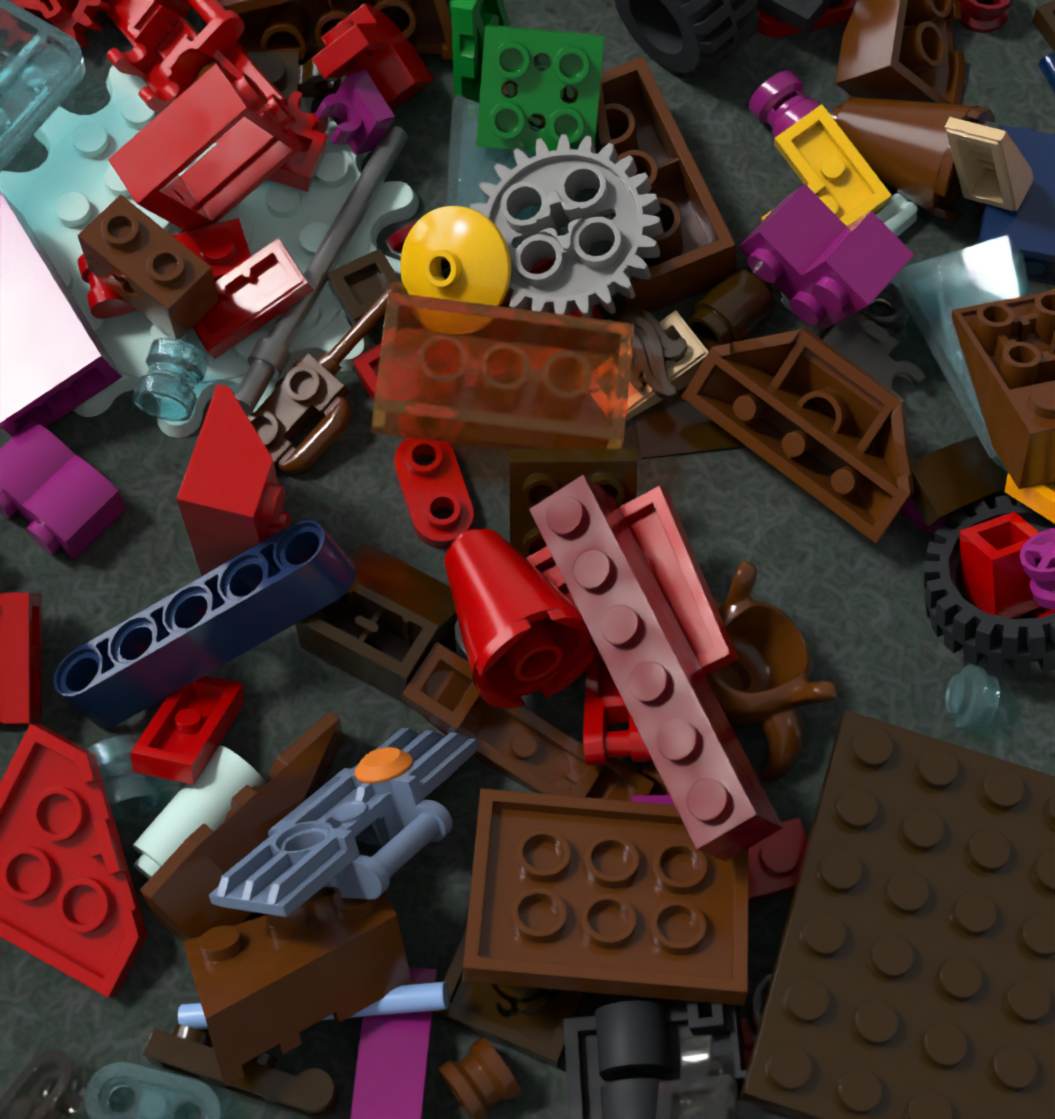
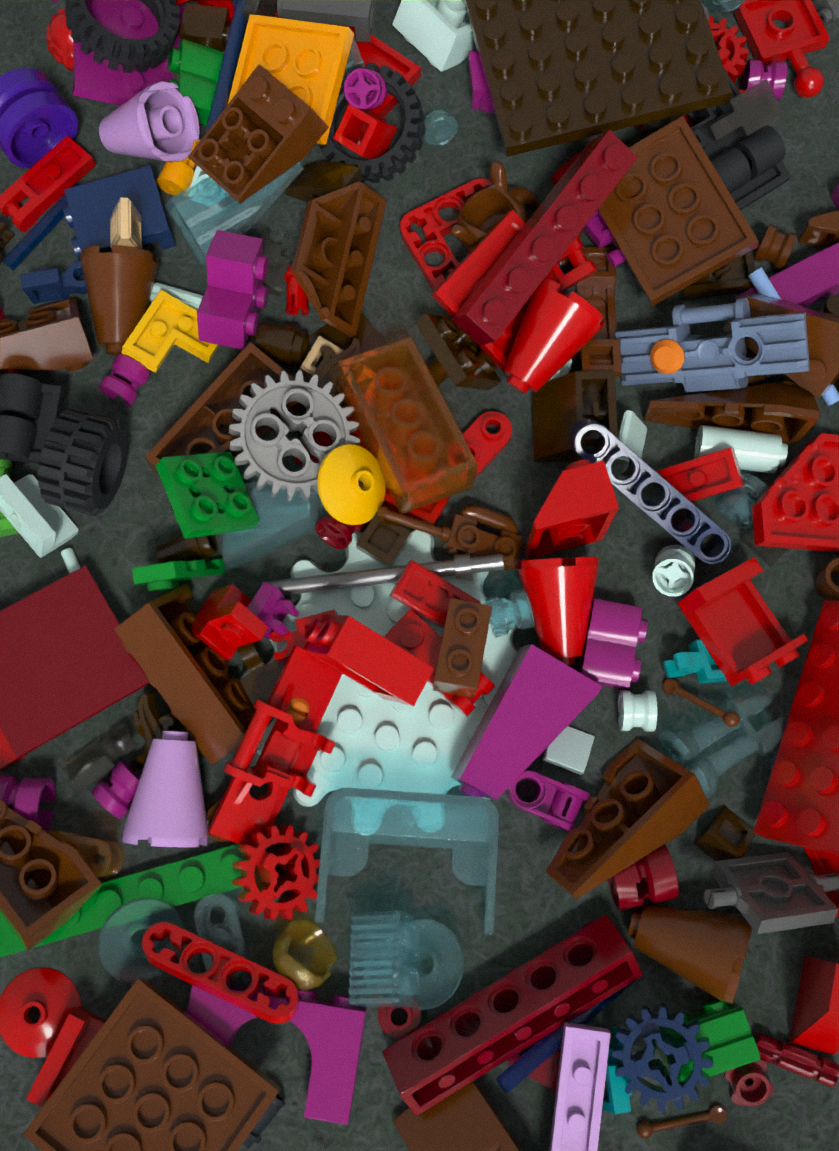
camera: 115 degrees left, 10 degrees up
(82, 609) = (674, 579): none -> light aqua wheel
(136, 447) = (561, 602): none -> red cone
(312, 682) = (632, 433): none -> light aqua slope
(805, 608) = (436, 228): none -> red beam
(988, 78) = (51, 285): none -> dark blue plate

